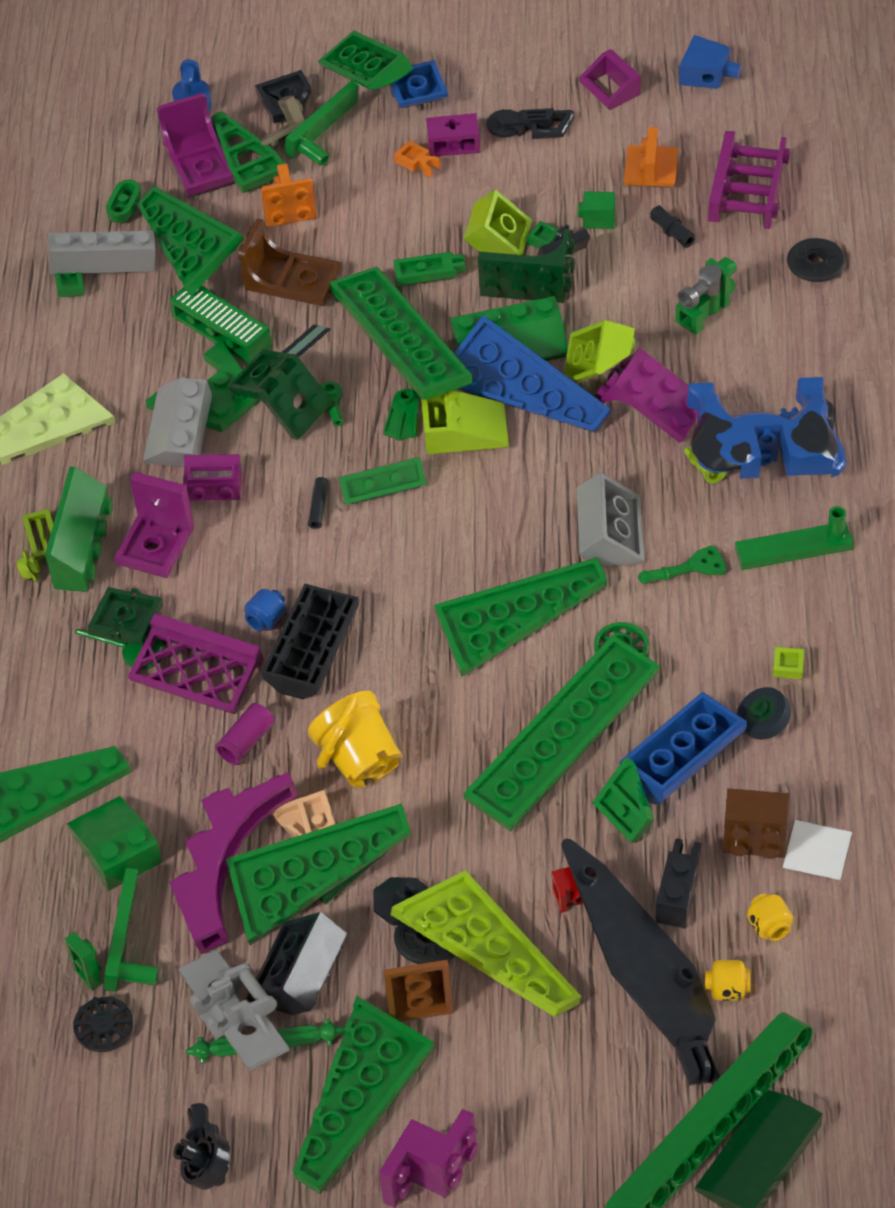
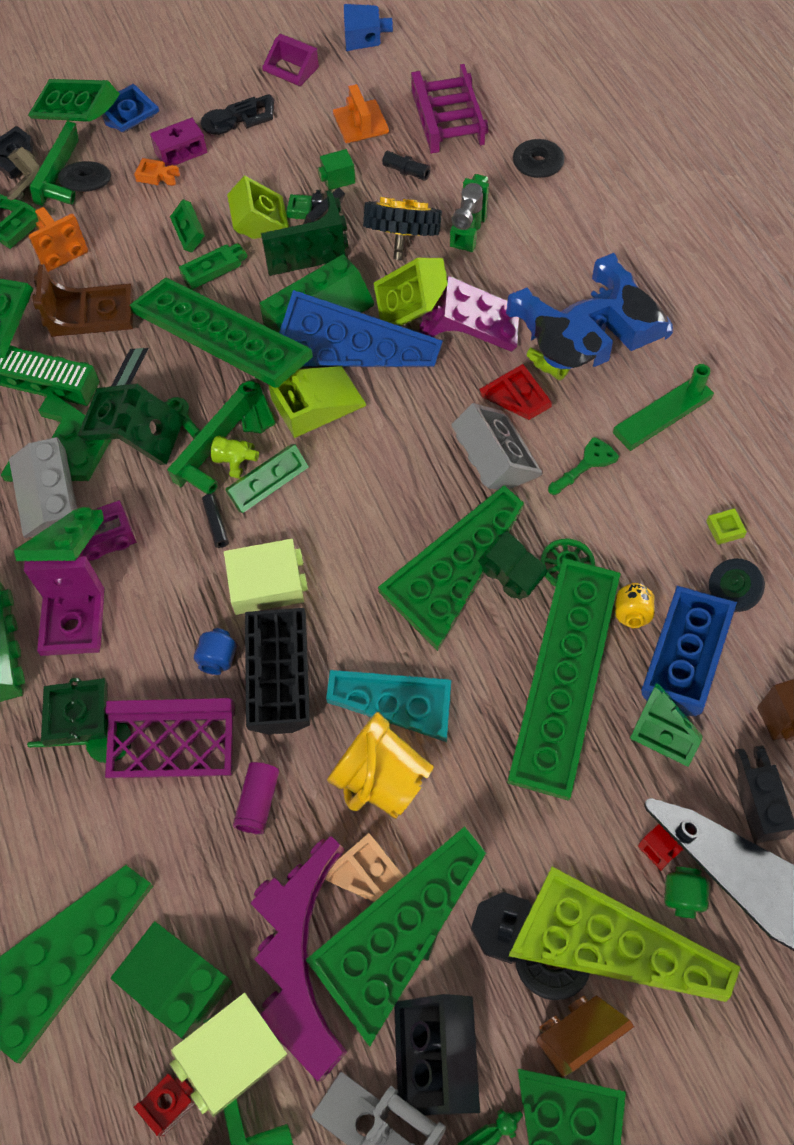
camera: 25 degrees left, 10 degrees up
(72, 917) = (161, 1119): none -> red brick
(133, 891) = (227, 1055): none -> yellowish green brick
(175, 466) = (62, 539): none -> green wing
(317, 443) = (186, 466): none -> green piece
(339, 562) = (265, 576): none -> yellowish green brick
(357, 145) = (84, 176): none -> black wheel
(362, 448) = (234, 453): none -> lime piece
(407, 704) = (403, 700): none -> teal wing
(421, 222) = (187, 226): none -> green plate
(563, 627) = (512, 566): none -> dark green brick
(568, 928) = (687, 892): none -> green head
(629, 280) = (402, 219): none -> black wheel
(658, 481) = (517, 393): none -> red wing
(658, 698) = (634, 605): none -> yellow head

